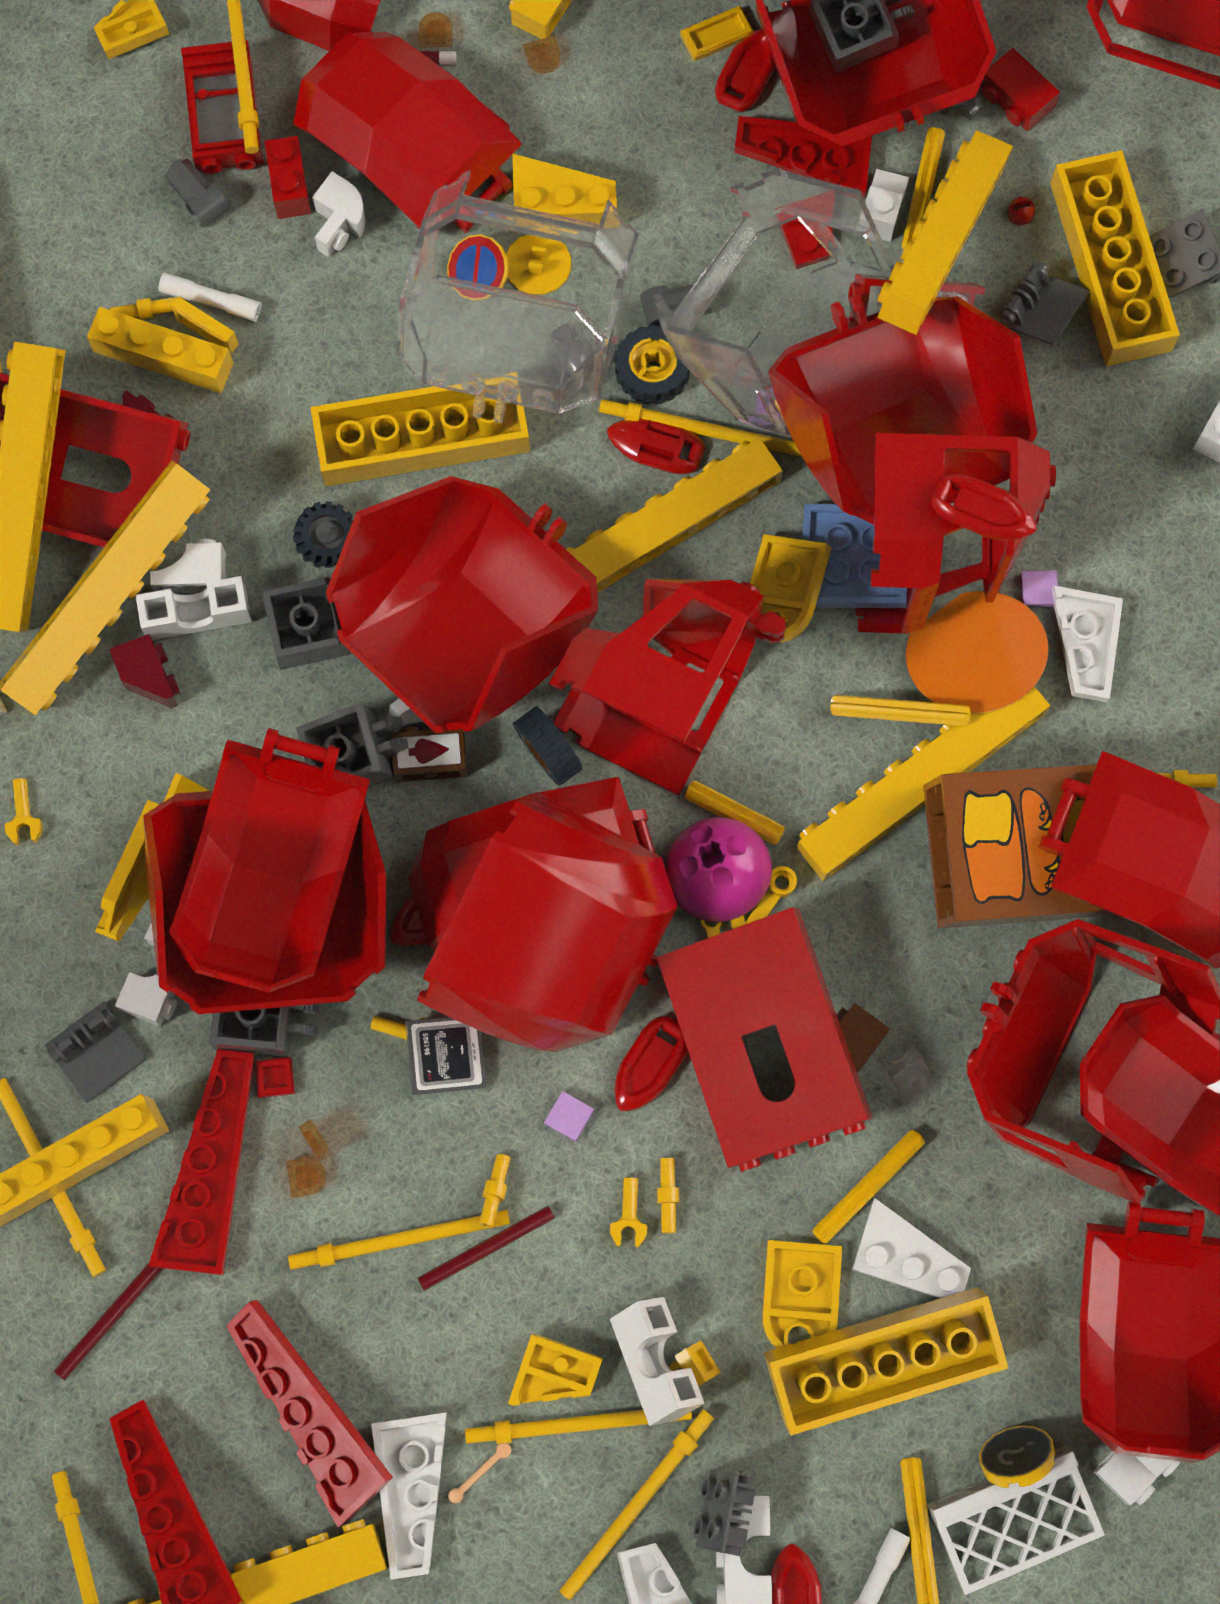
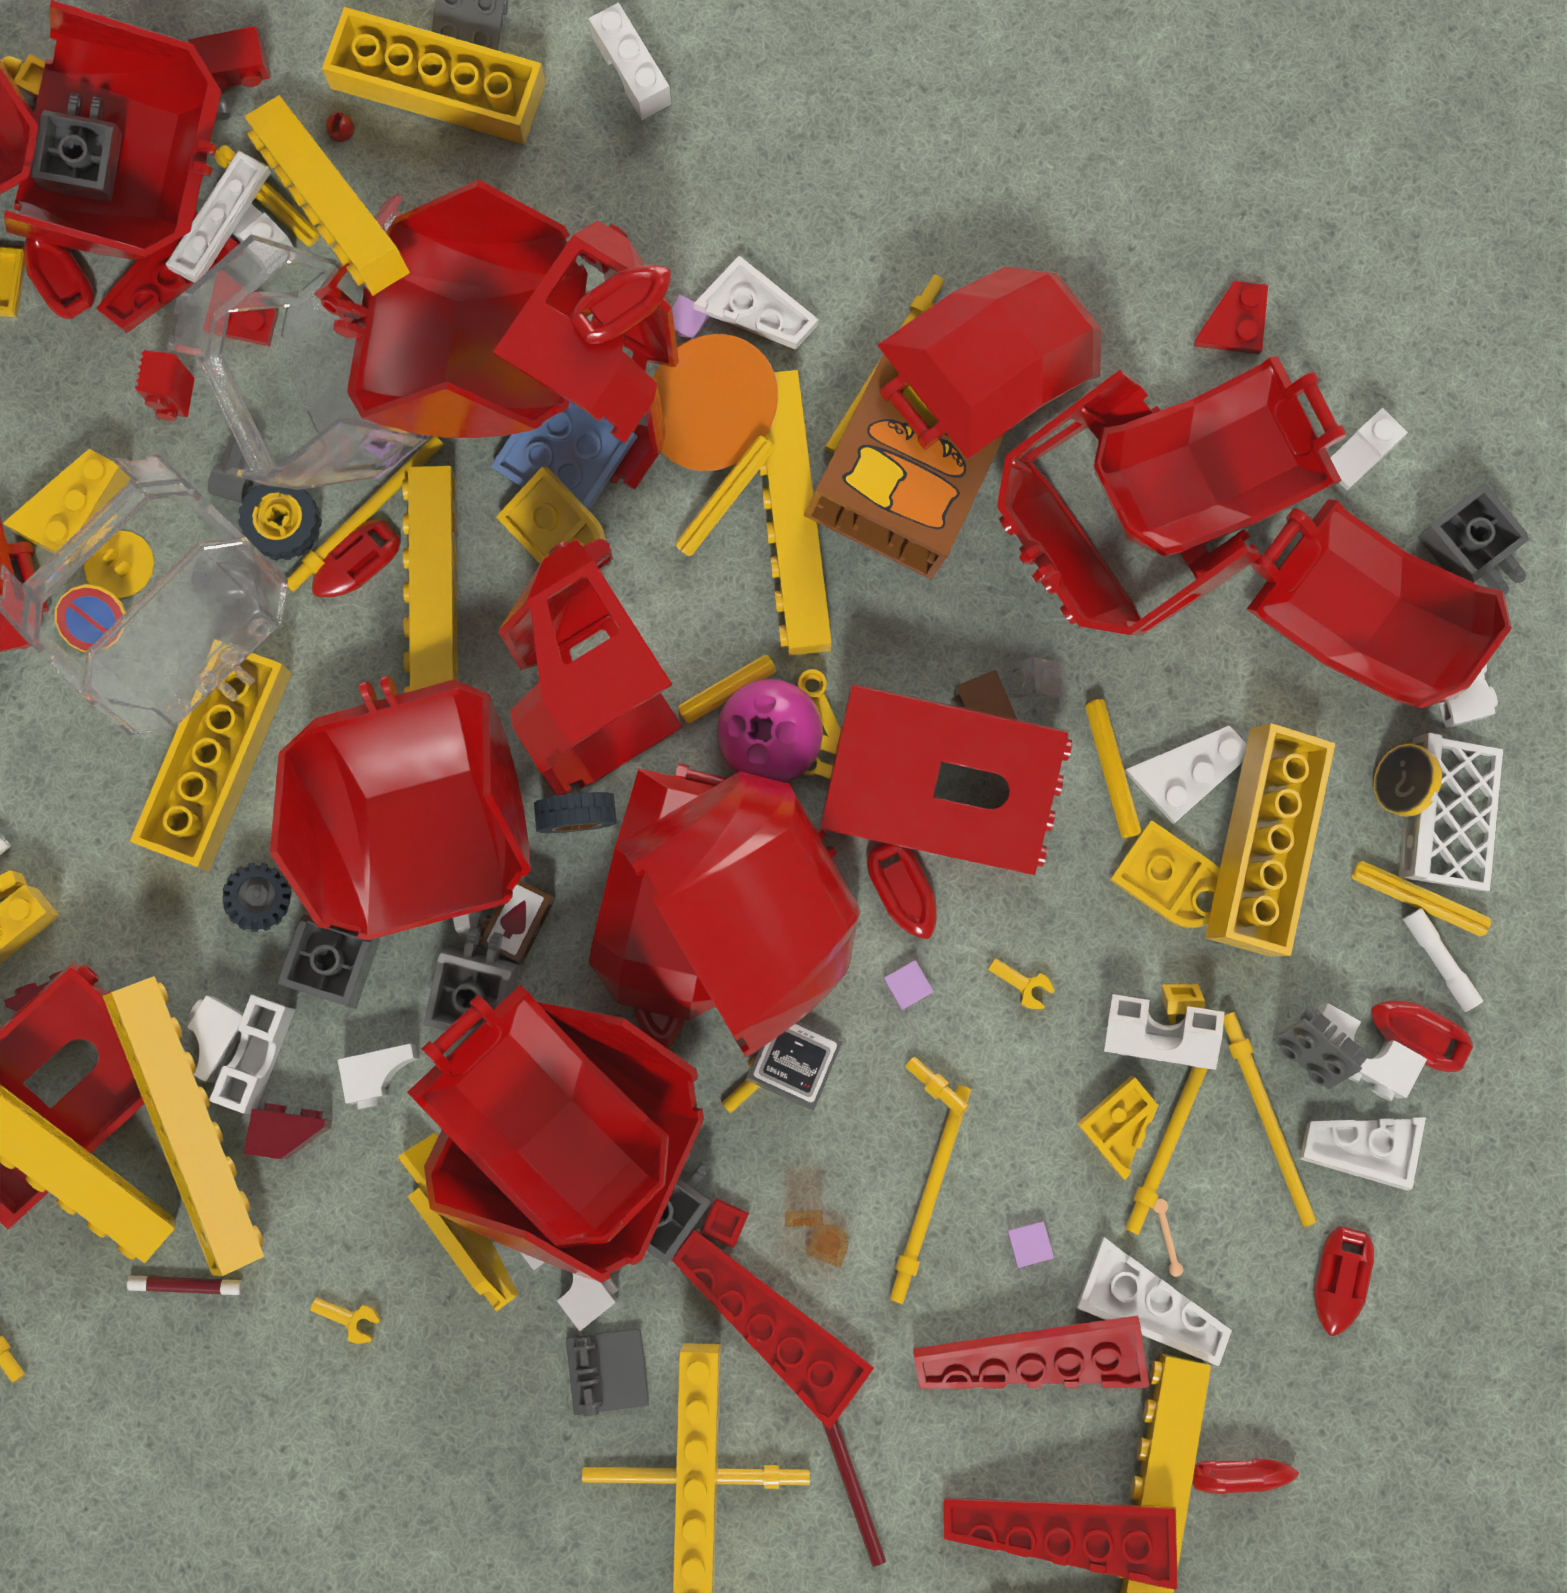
camera: 60 degrees left, 5 degrees up
(231, 712) = (369, 1074): none -> white arch
(404, 1352) = (1030, 1244): none -> lavender tile
(485, 1248) = (980, 1122): dark red bar -> none
(668, 1195) = (1025, 940): yellow bar -> none
(706, 207) = (165, 384): none -> red brick
(877, 162) = (218, 217): none -> white tile
(1042, 305) = (439, 159): dark grey hinge -> none

